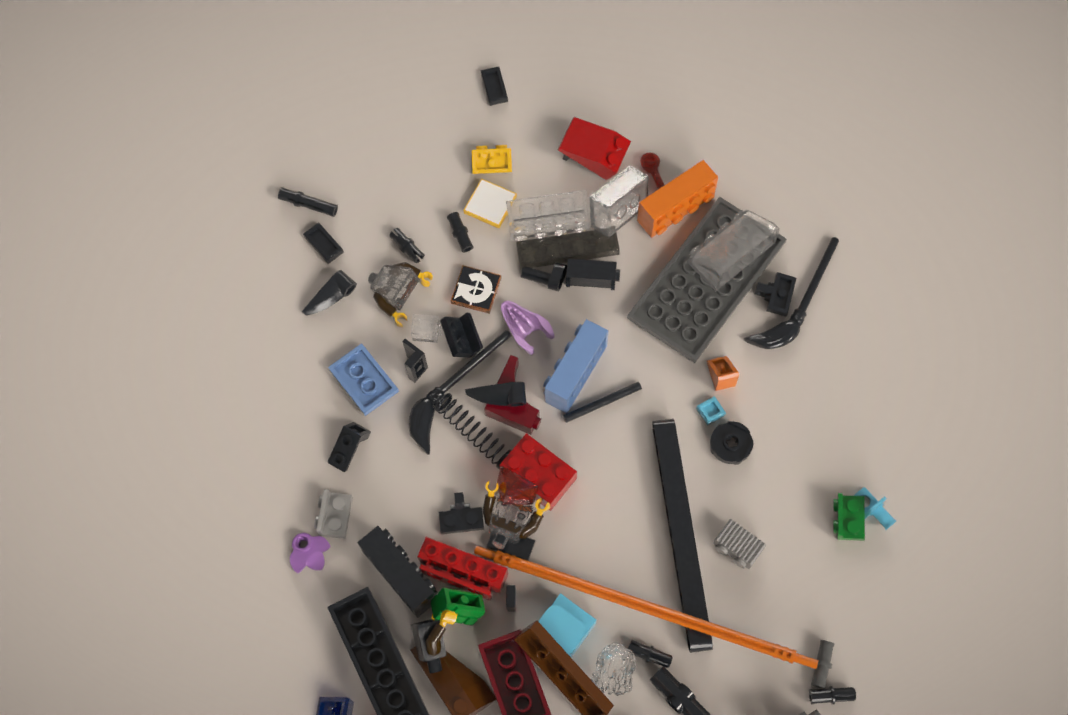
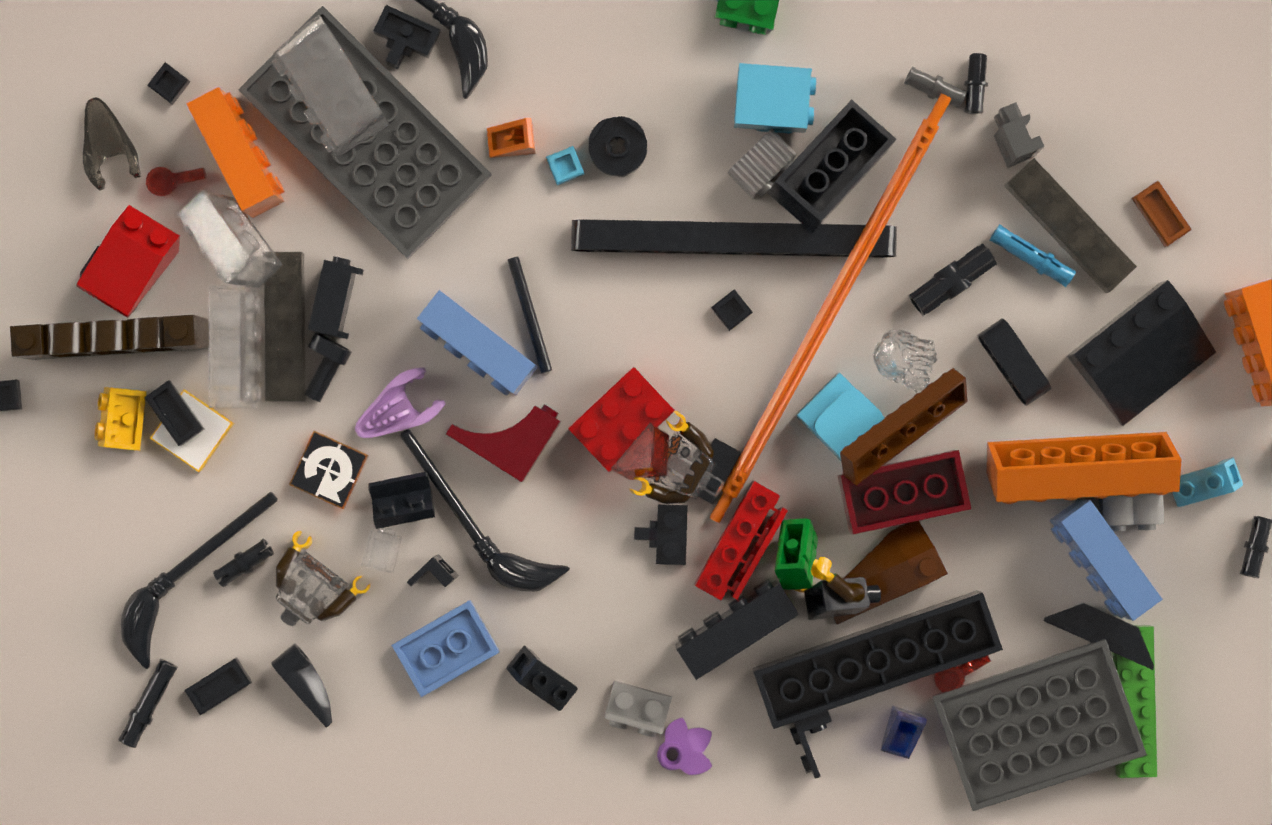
camera: 80 degrees left, 20 degrees up
(335, 641) = (813, 724): none -> black bracket
(371, 190) = (143, 605): none -> black piece
(438, 408) = (588, 457): black piece -> none
(460, 232) = (234, 481): black pin -> none
(499, 189) = (174, 413): none -> black tile
(502, 394) = (508, 454): black piece -> none
(511, 598) = (790, 481): black tile -> none
(542, 138) = (109, 337): none -> dark brown fence
(629, 539) = (731, 310): none -> black tile
(650, 654) = (889, 309): black axle -> none
(669, 124) = (105, 139): none -> clear smoke animal
(715, 157) = (168, 83): none -> black tile
(748, 590) = (831, 166): none -> black brick
(788, 543) = (774, 98): none -> medium azure brick

